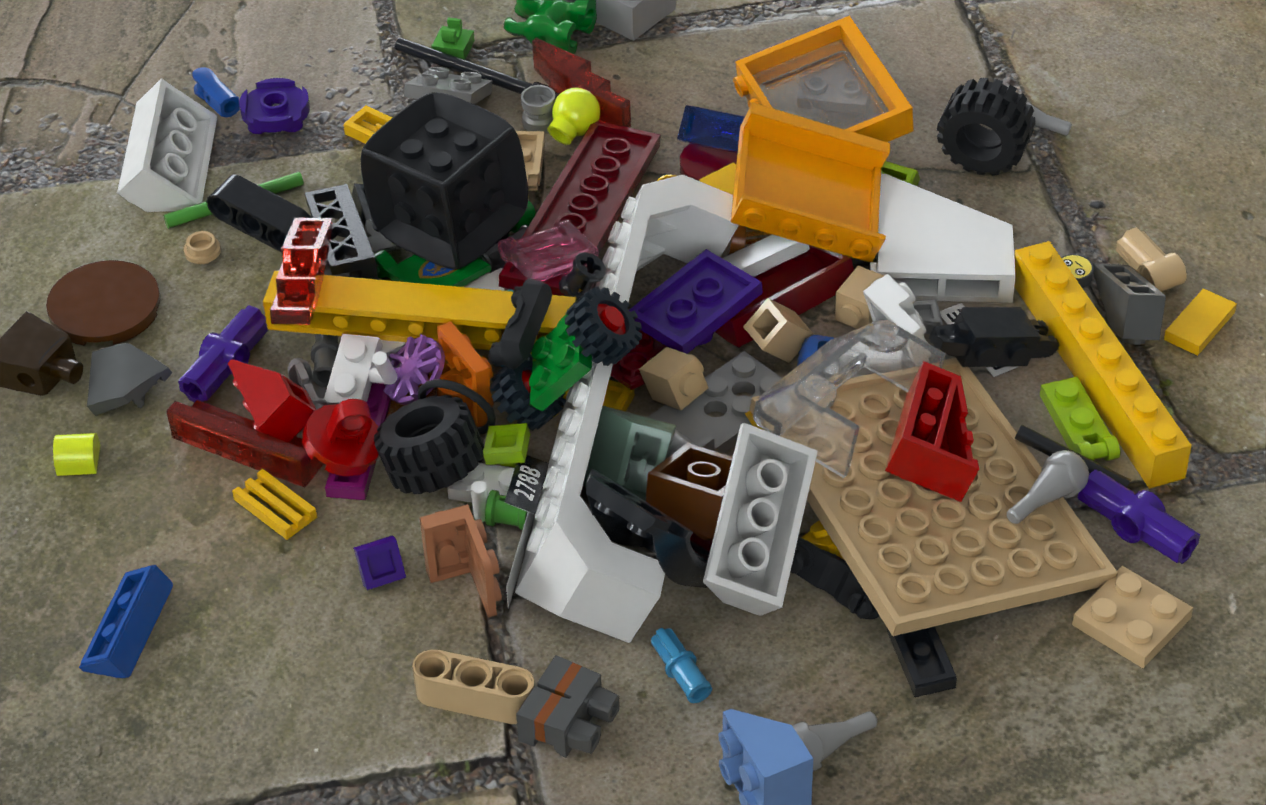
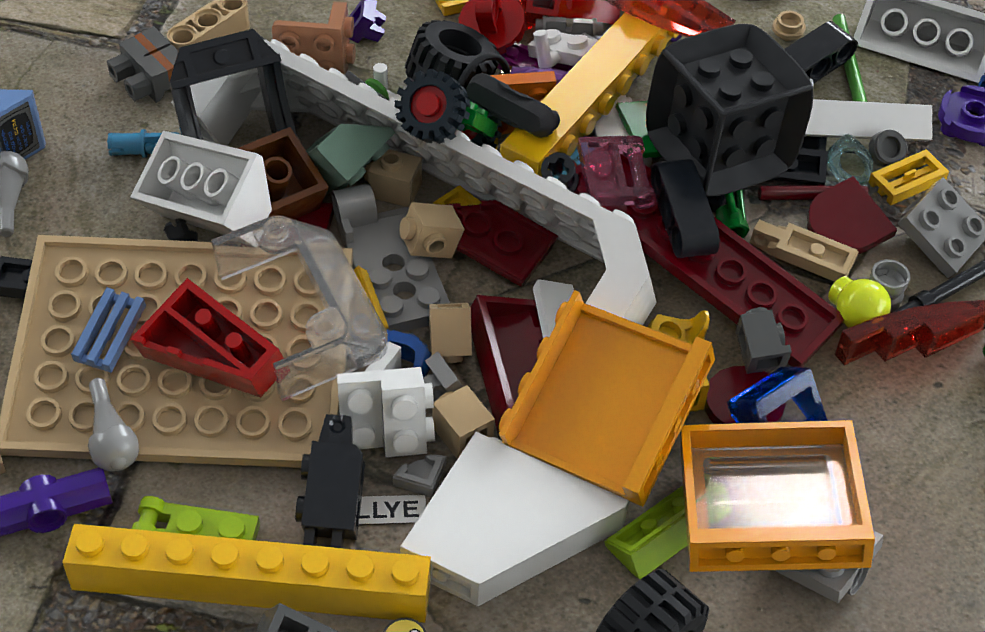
camera: 110 degrees right, 5 degrees up
(330, 152) = (866, 119): none -> white tile
(353, 141) = (887, 147): none -> dark grey tile
(569, 198) = (684, 208): none -> black beam
(668, 144) = (762, 341): none -> dark grey brick
(696, 302) = (510, 269): dark purple plate -> none
(830, 322) = (443, 378): none -> light grey tile
(958, 525) = (95, 323): none -> medium blue tile
(1050, 446) = (146, 486): black bar -> none

